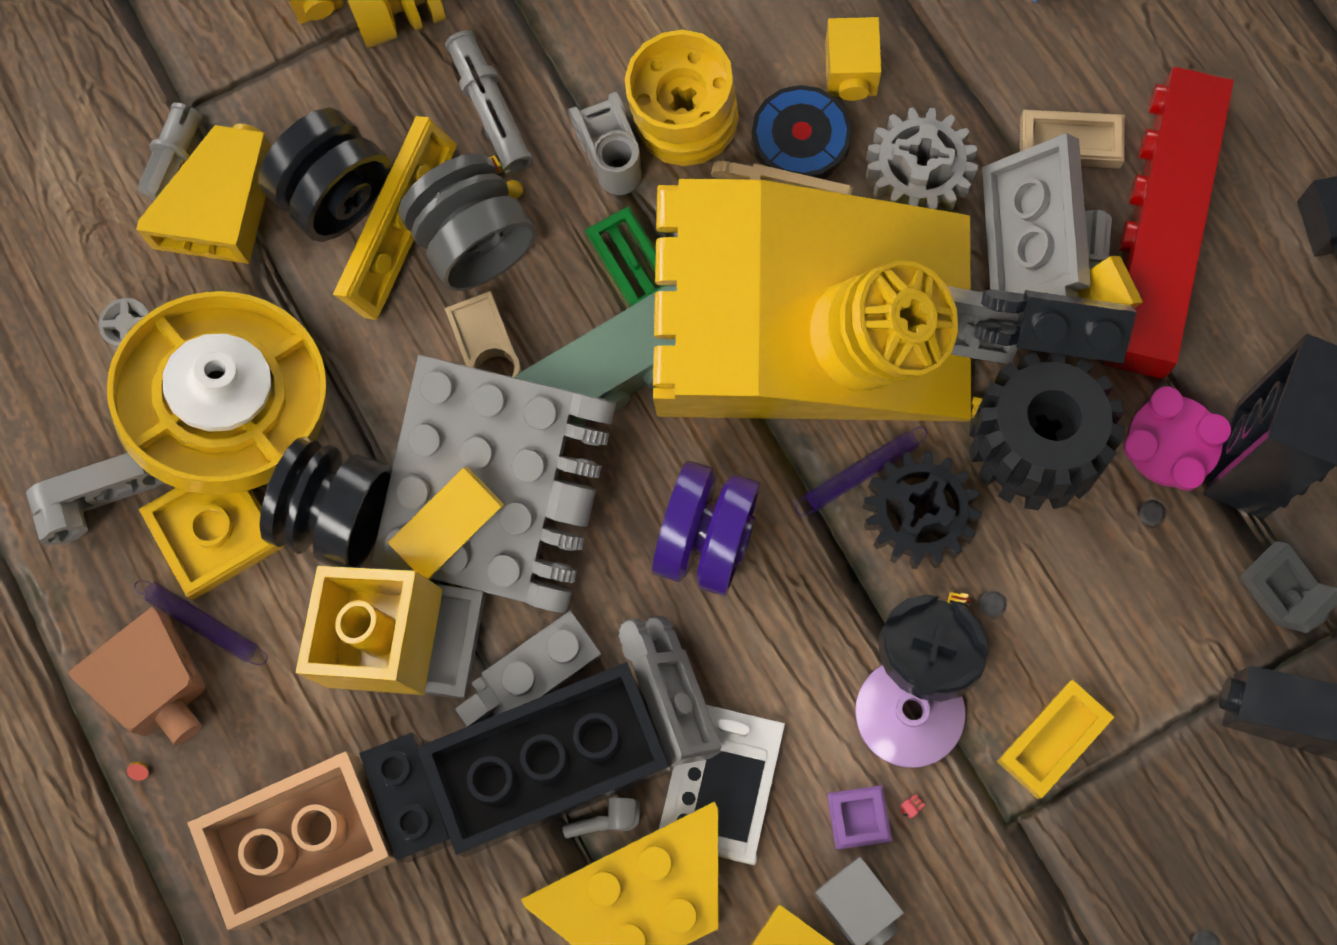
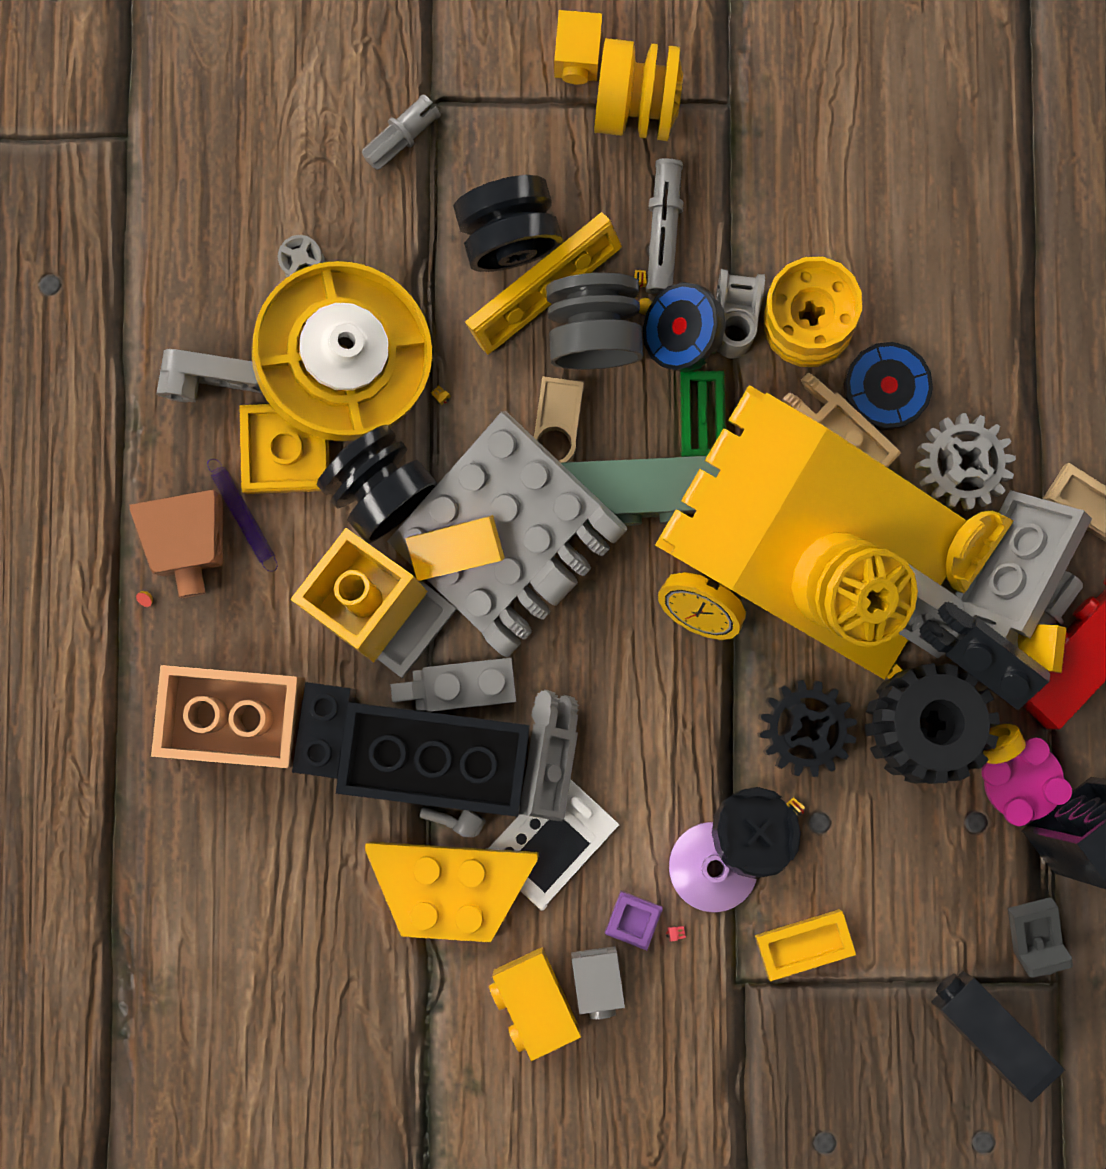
camera: 25 degrees right, 10 degrees up
(213, 198) = (417, 190): yellow slope -> none
(349, 386) = (441, 395): none -> yellow piece
(562, 182) = (683, 327): none -> tile
(698, 525) = (643, 659): dark purple wheel -> none
(740, 441) = (701, 607): none -> yellow tile
(853, 57) = (962, 348): yellow brick -> none
(856, 480) = (780, 670): dark purple piece -> none
(980, 237) = (973, 547): none -> yellow tile
(1137, 411) = (1008, 746): none -> yellow tile

